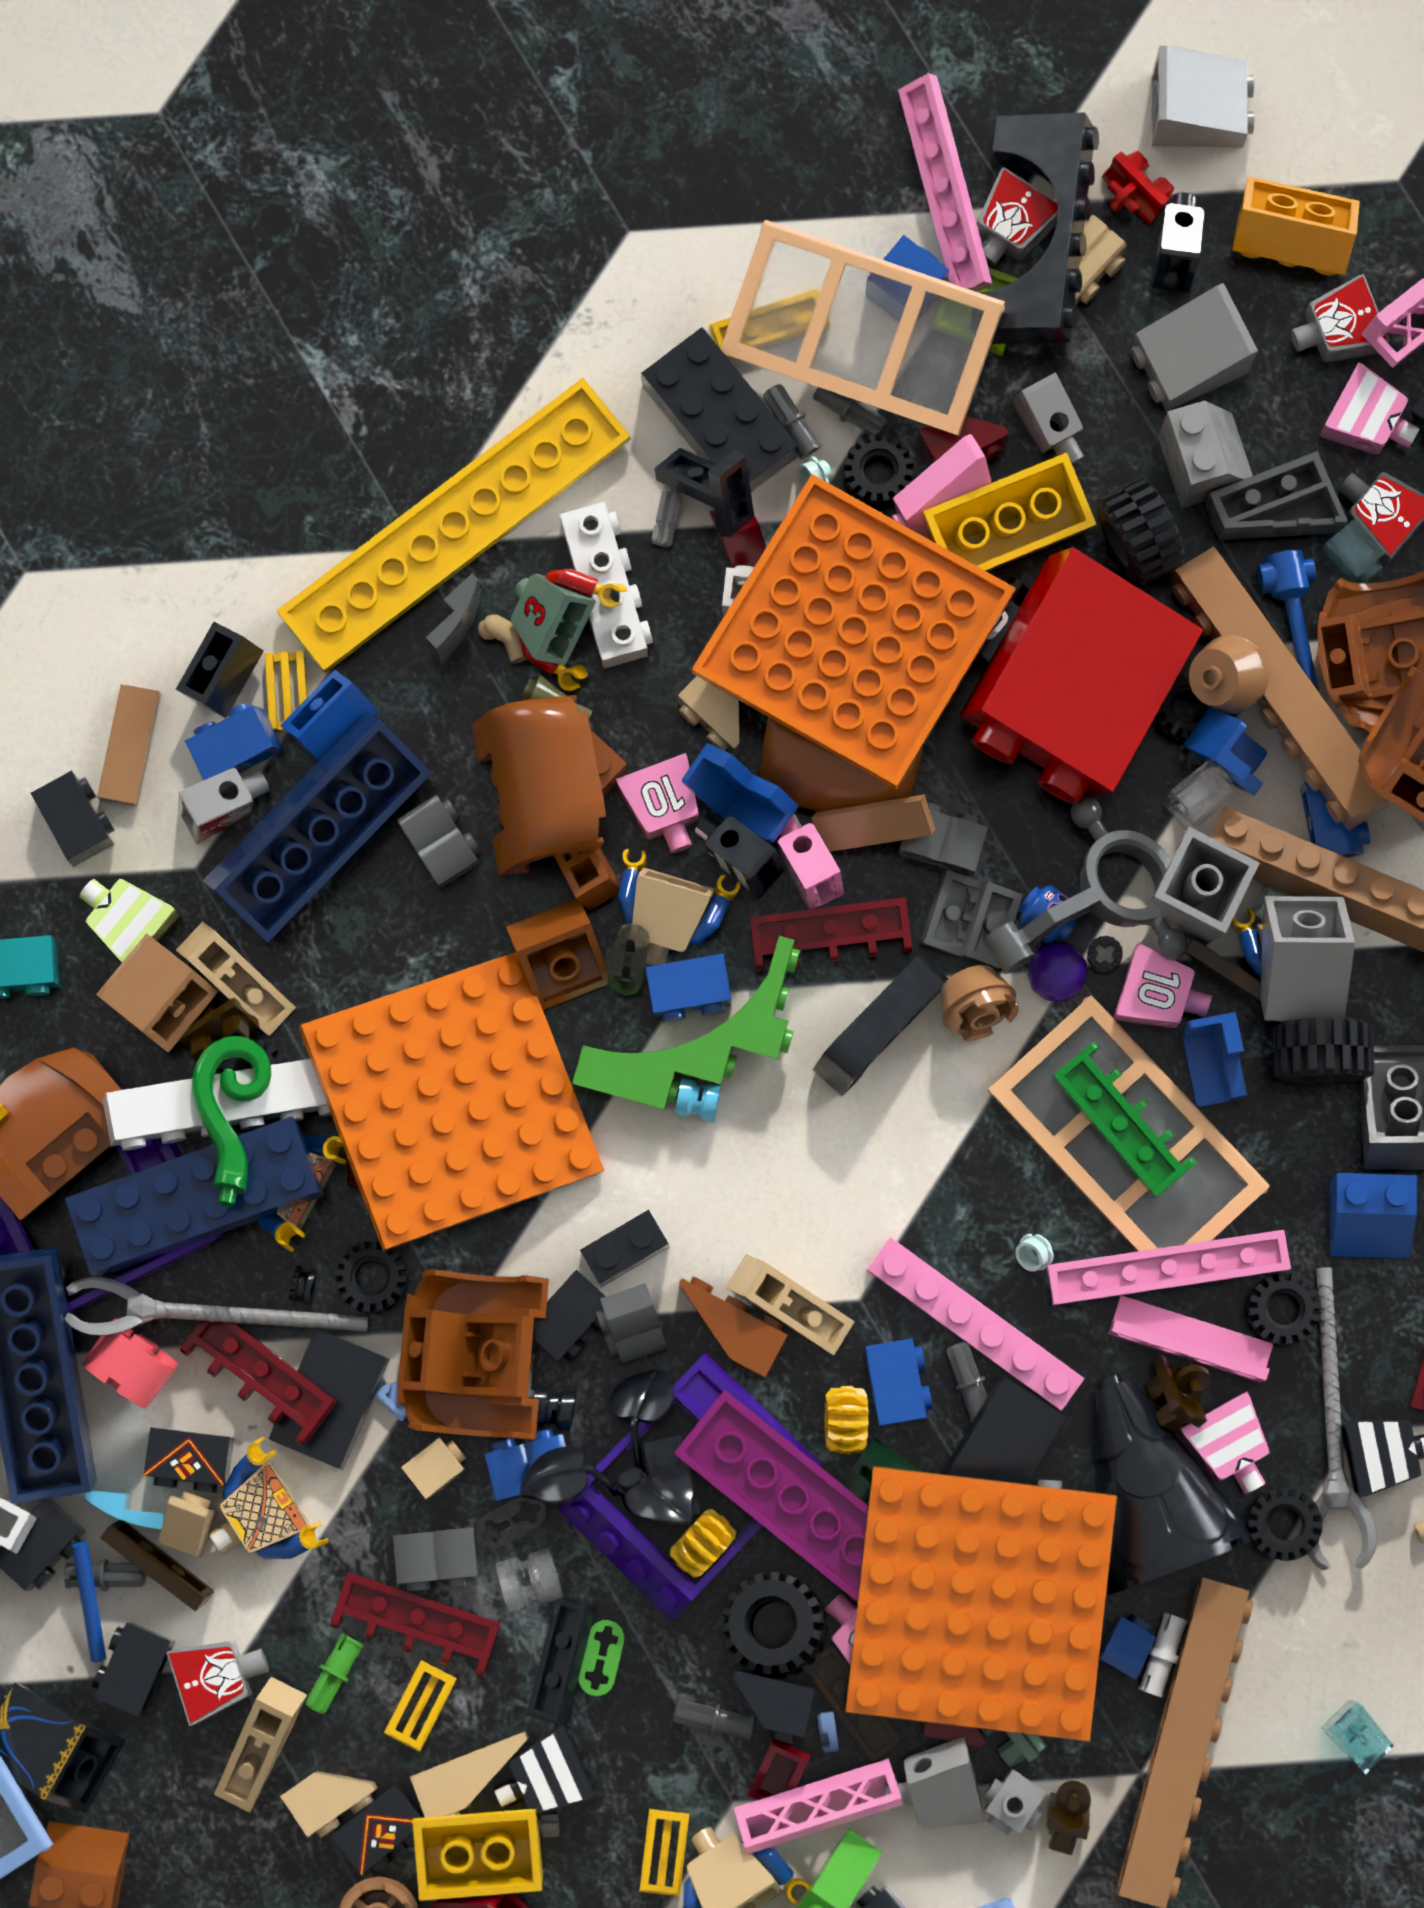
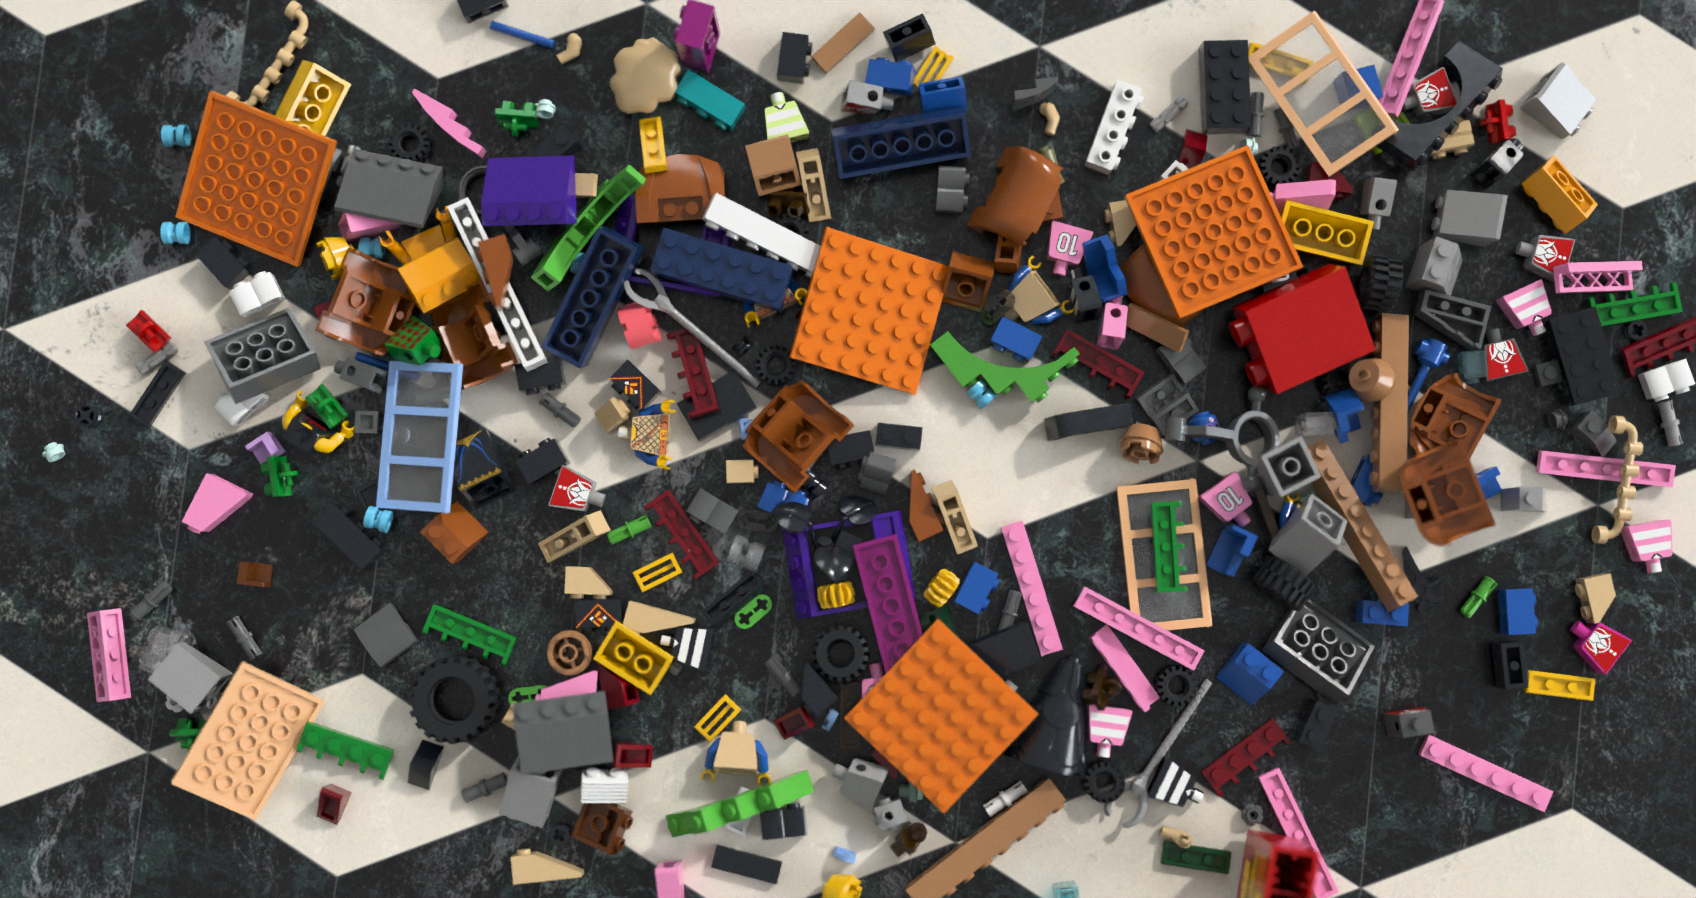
camera: 35 degrees right, 5 degrees up
(89, 1601) = (537, 431): blue bar -> none
(119, 1507) = (588, 384): medium azure slope -> none
(157, 1564) = (586, 422): dark brown tile -> none
(232, 1164) = (751, 264): green plant -> none
(453, 525) = (1065, 49): yellow plate -> none
(552, 617) = (1078, 125): sand green torso -> none
(719, 485) = (1201, 119): black bracket -> none
(817, 1806) = (800, 750): bright pink fence -> none
(1034, 1252) = (1082, 576): light aqua plate -> none
(1057, 971) = (1188, 457): dark purple hair -> none
(1104, 942) = (1220, 459): black bush -> none
(1127, 1646) = (992, 783): dark blue slope -> none

